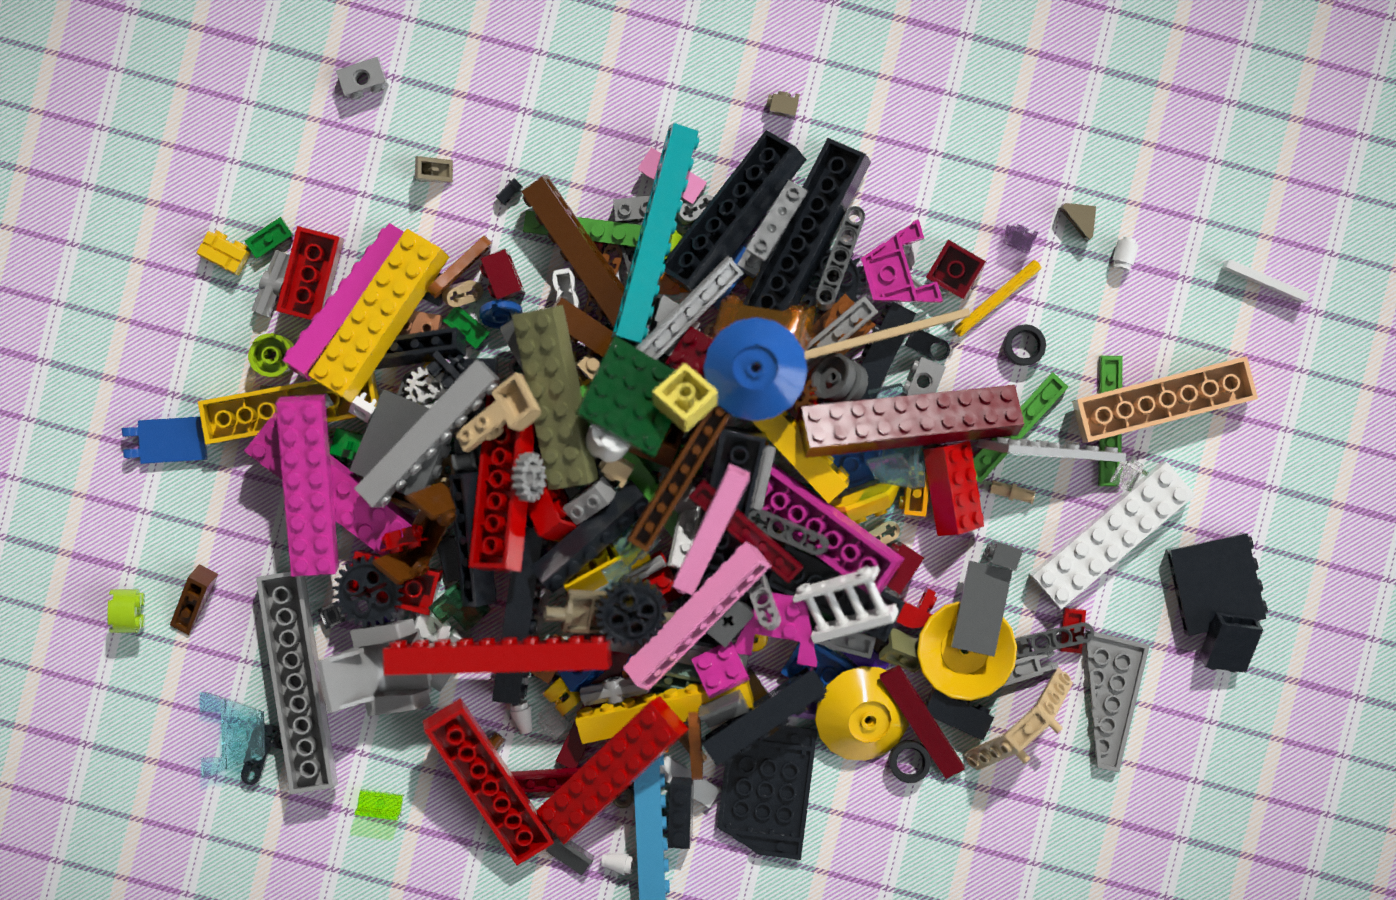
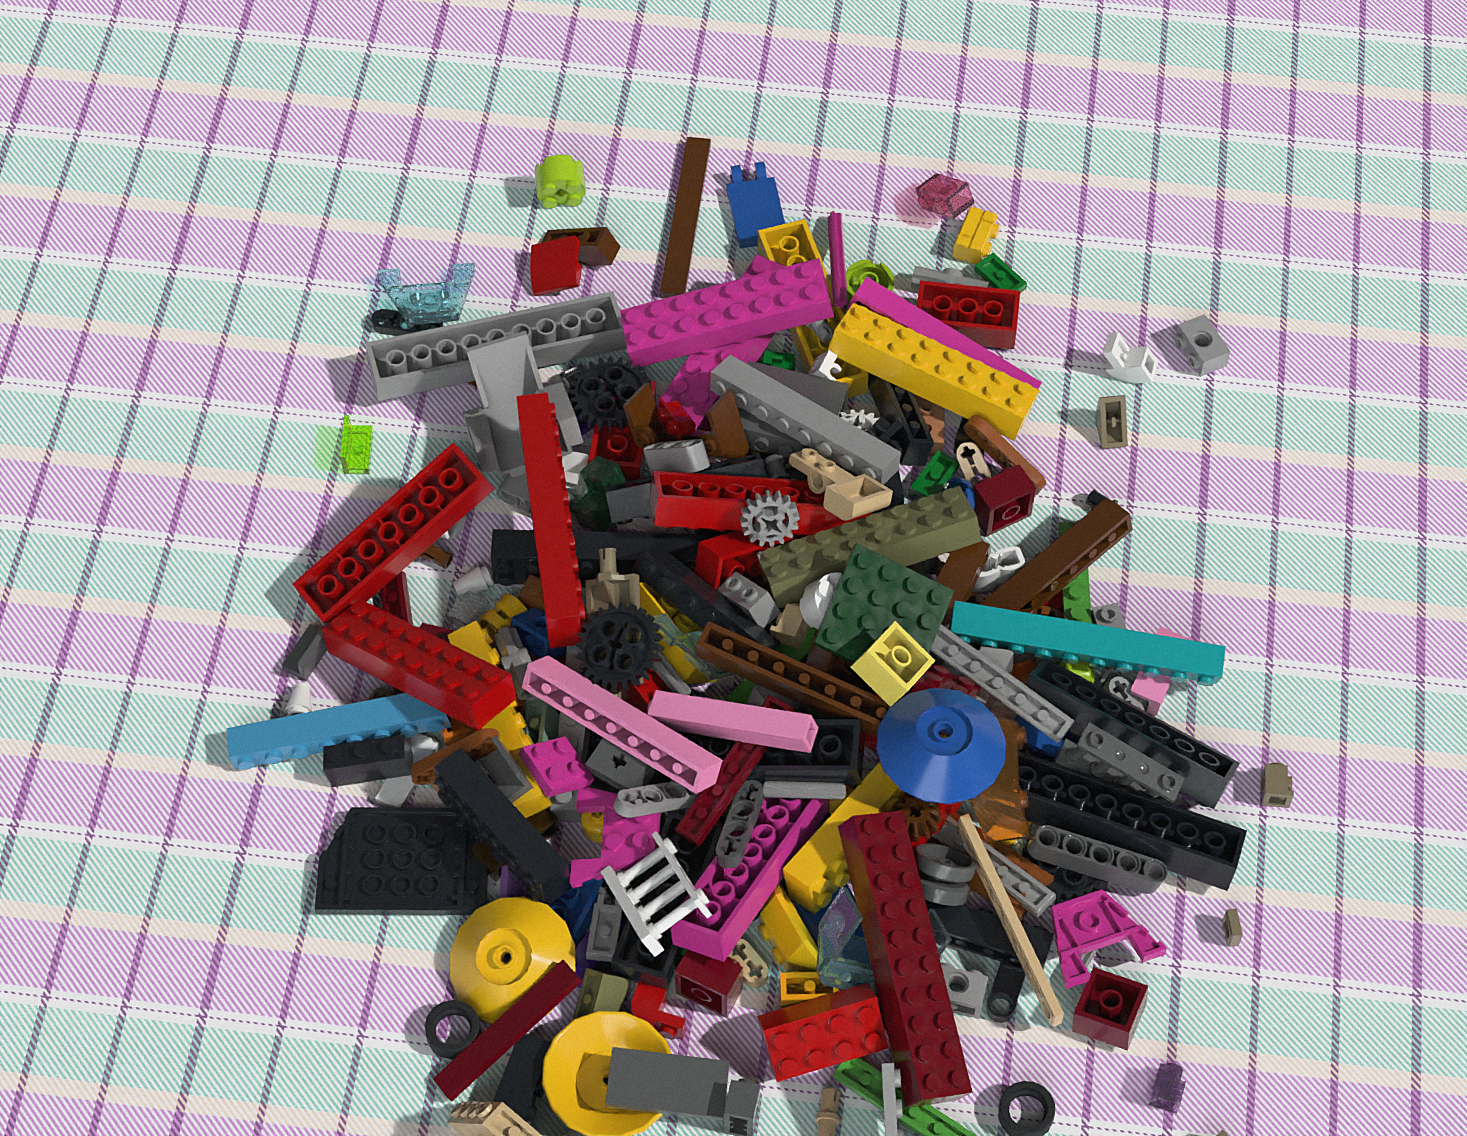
camera: 85 degrees right, 30 degrees down
(169, 502) = (685, 217): none -> reddish brown tile
(181, 274) = (944, 195): none -> clear pink brick
(215, 623) = (555, 265): none -> red slope
(242, 378) = (837, 260): none -> dark pink axle
(373, 143) = (1127, 363): none -> white brick
(450, 544) = (677, 456): none -> light grey beam
(899, 163) = (1232, 927): none -> dark tan tile
(997, 298) = (1082, 1071): yellow axle -> none

